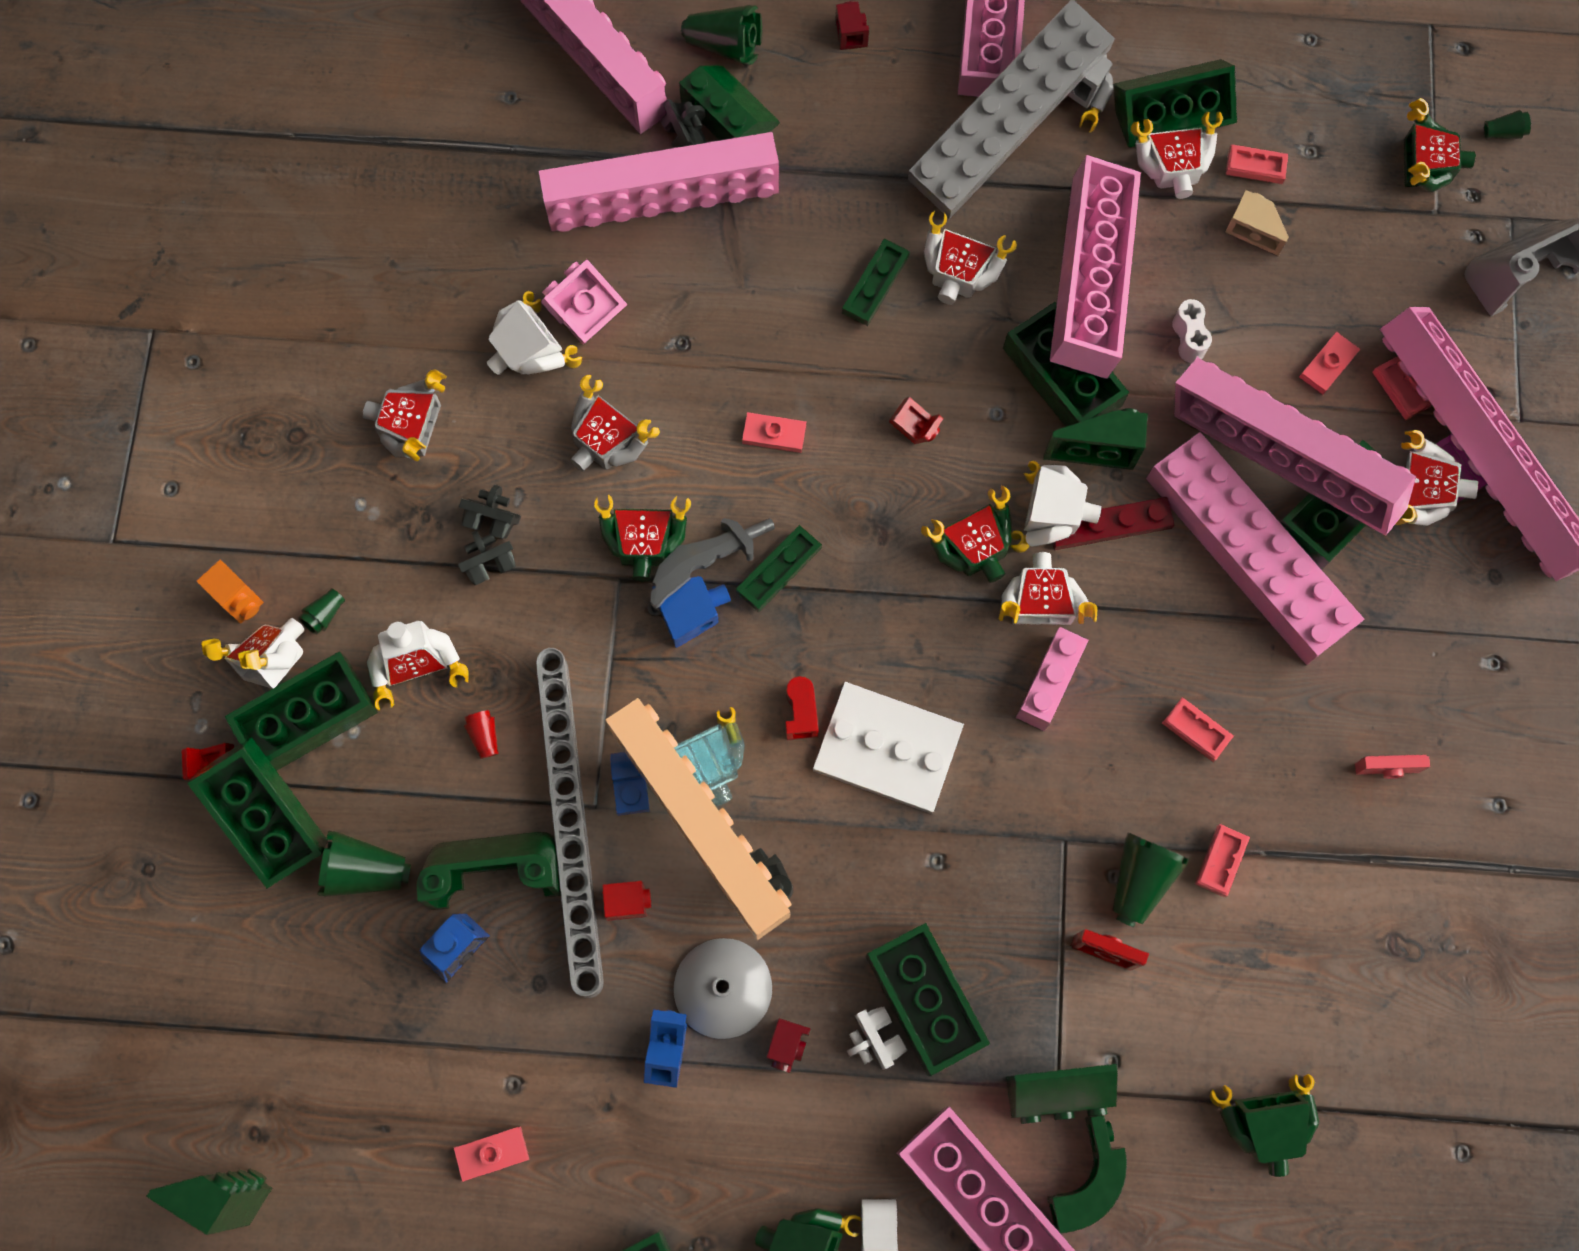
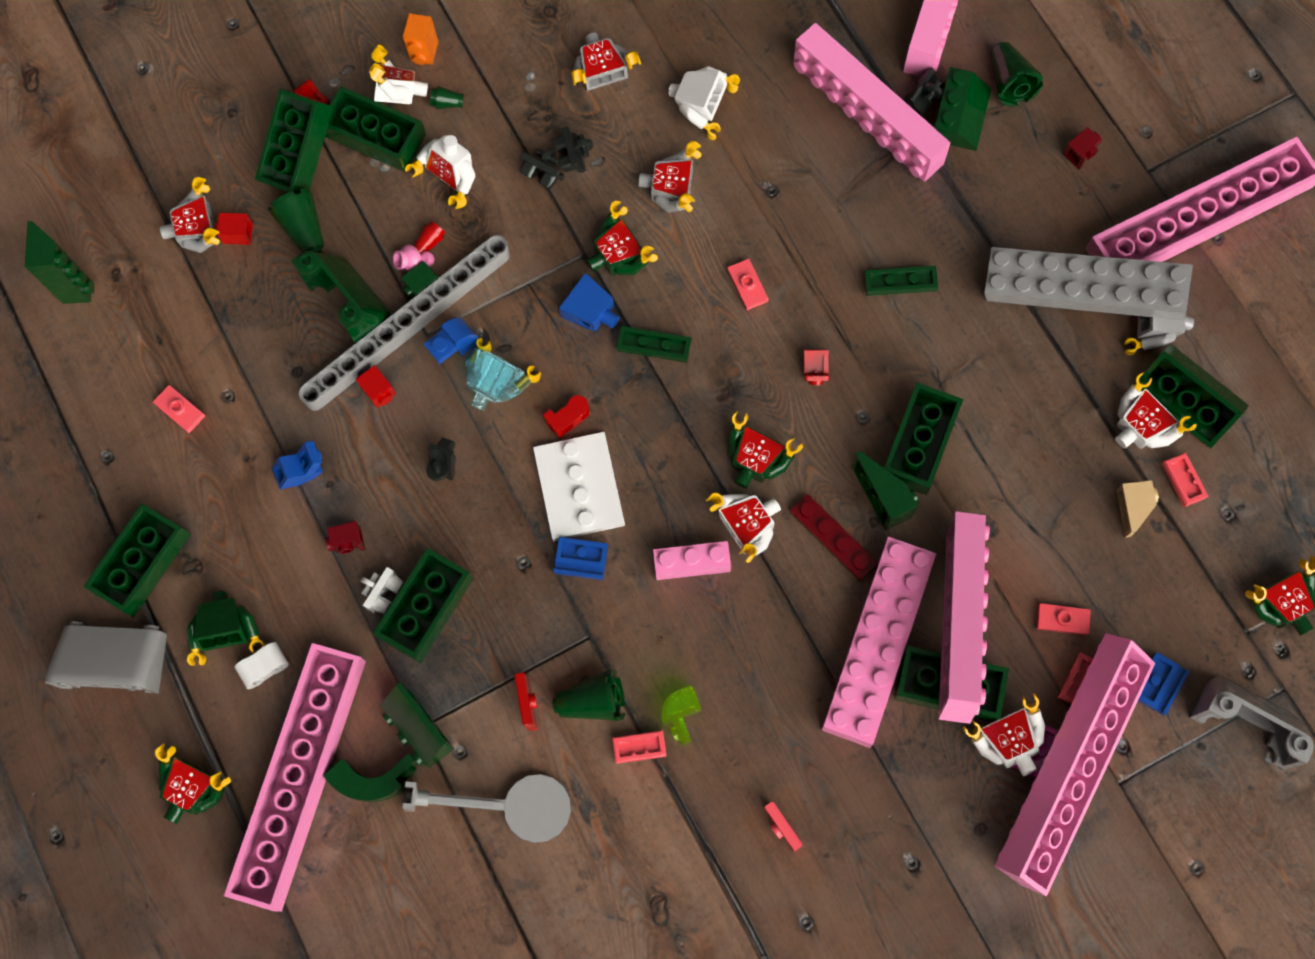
camera: 65 degrees right, 0 degrees up
(264, 996) = (193, 220): none -> torso
(307, 952) = (234, 228): none -> red brick
(453, 945) = (283, 304): blue torso -> none
(496, 768) = (409, 257): none -> bright pink animal
(531, 774) = (418, 279): none -> dark green brick
(582, 301) = (753, 111): bright pink plate -> none
(677, 567) = (628, 289): dark grey sword -> none
(698, 818) = (443, 389): light nougat brick -> none
(730, 1012) = (366, 493): light grey dish -> none
(962, 263) = (954, 324): torso -> none
(974, 794) = (581, 558): none -> blue plate
(1054, 506) = (813, 489): white torso -> none
(1096, 268) = (1008, 409): bright pink brick -> none
(1191, 329) = (1016, 508): white axle -> none
(1197, 729) = (721, 679): coral plate -> none
(1203, 794) = (676, 708): none -> clear neon green brick
(1225, 1017) = (534, 807): none -> light grey piece
(1272, 1125) = (475, 878): dark green torso -> none
(1452, 314) = (1163, 684): none -> blue plate

